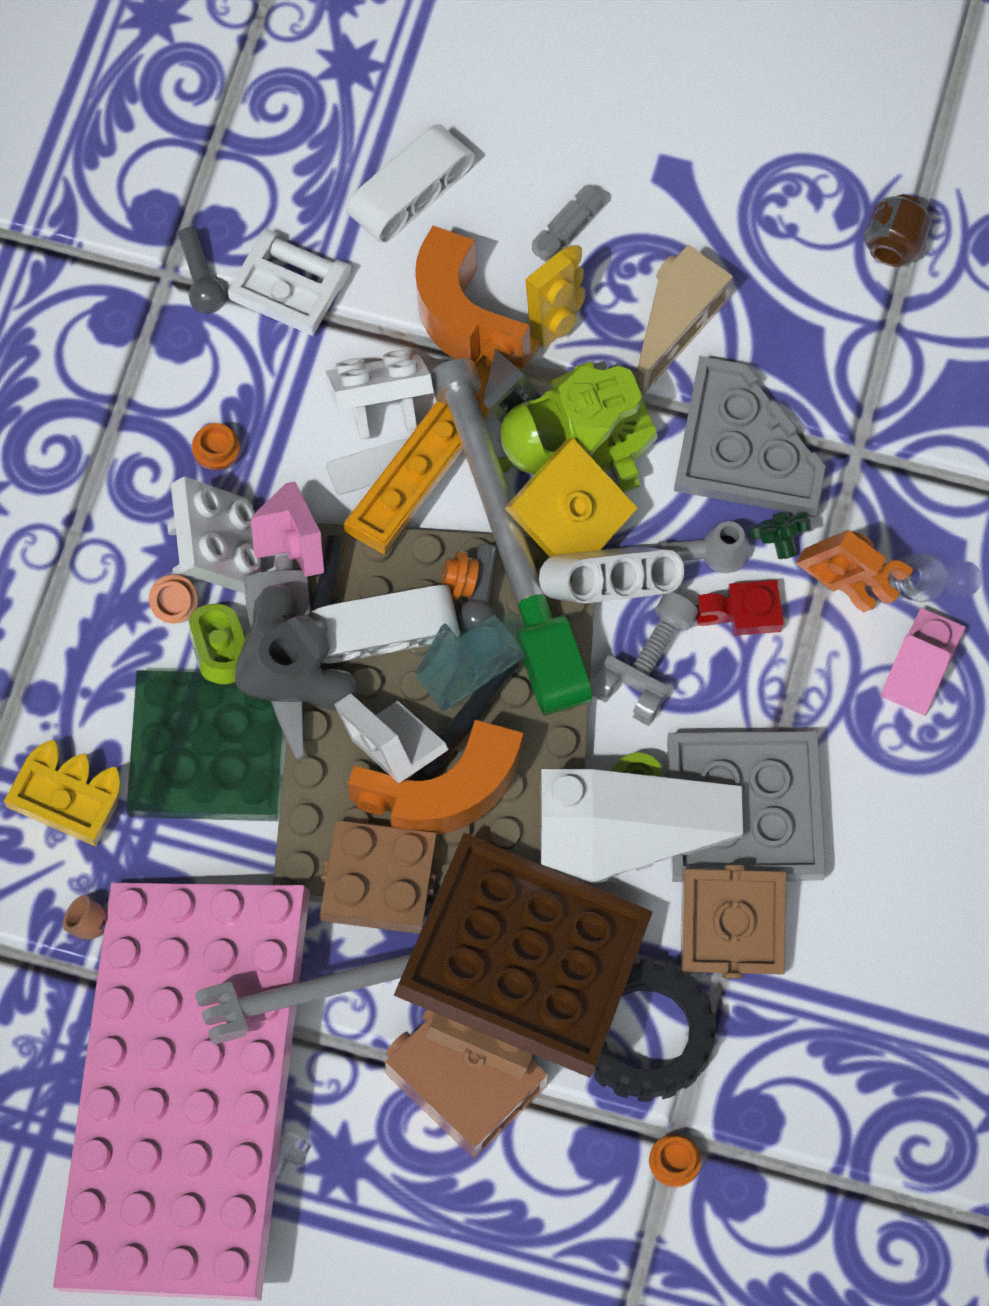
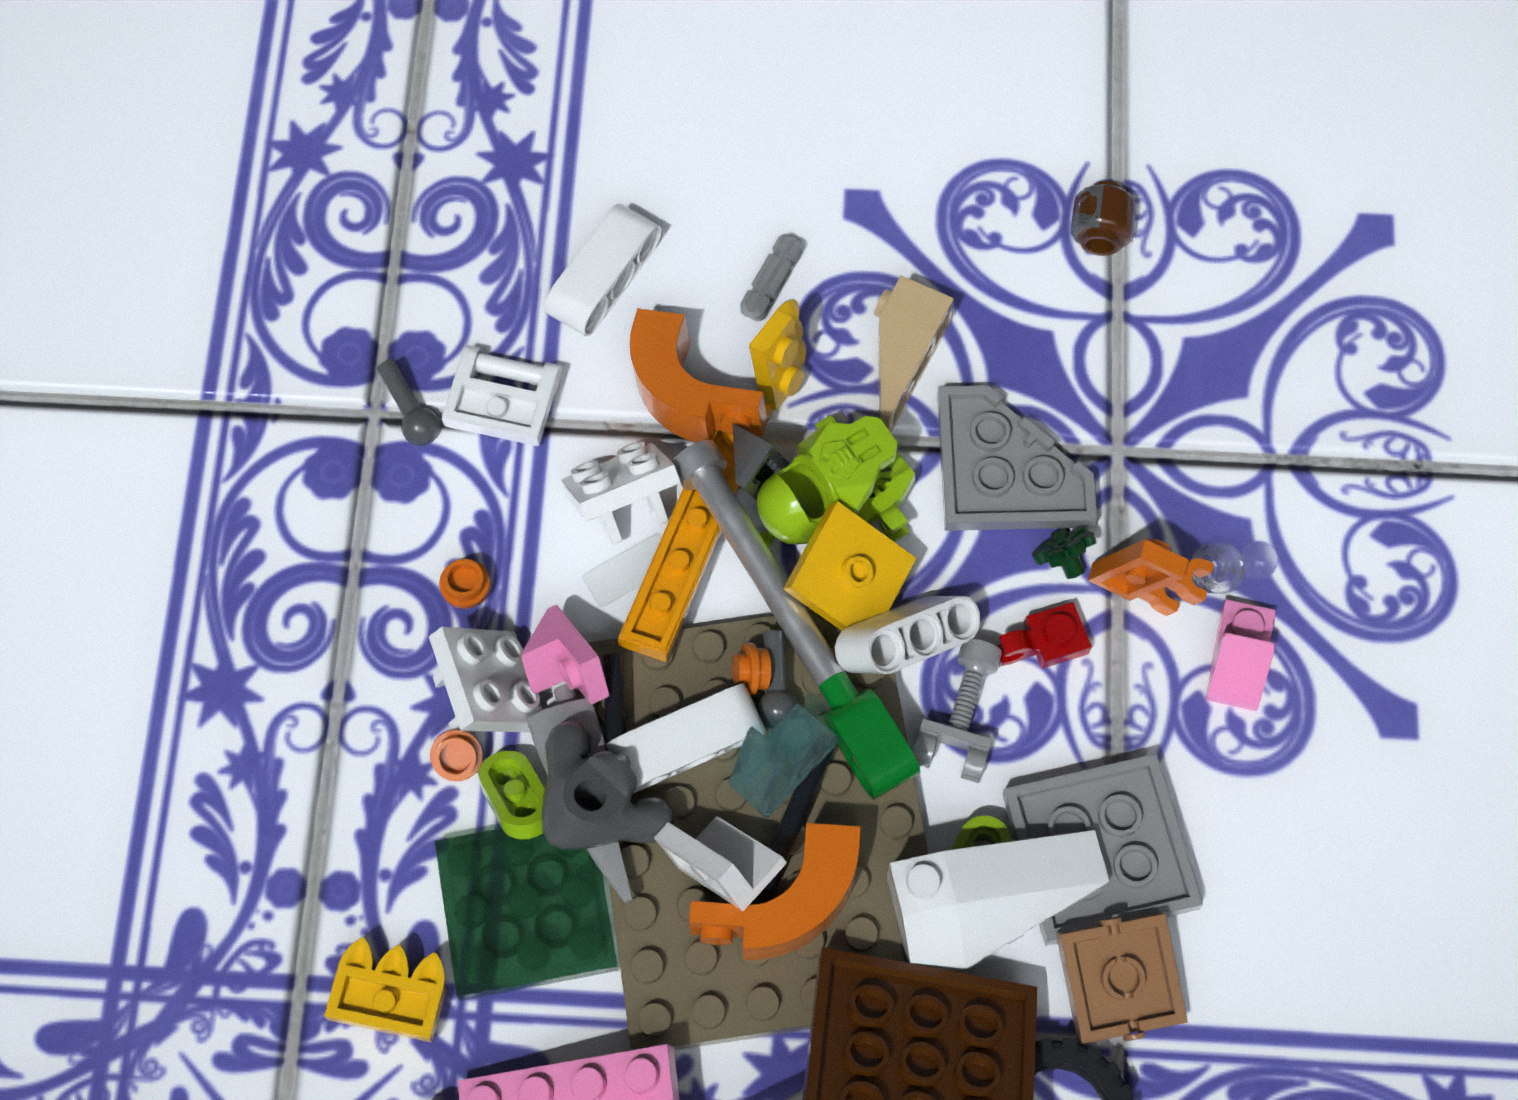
camera: 10 degrees left, 0 degrees up
(378, 877) = (742, 1014): medium nougat plate -> none
(716, 553) = (999, 582): light grey bar -> none

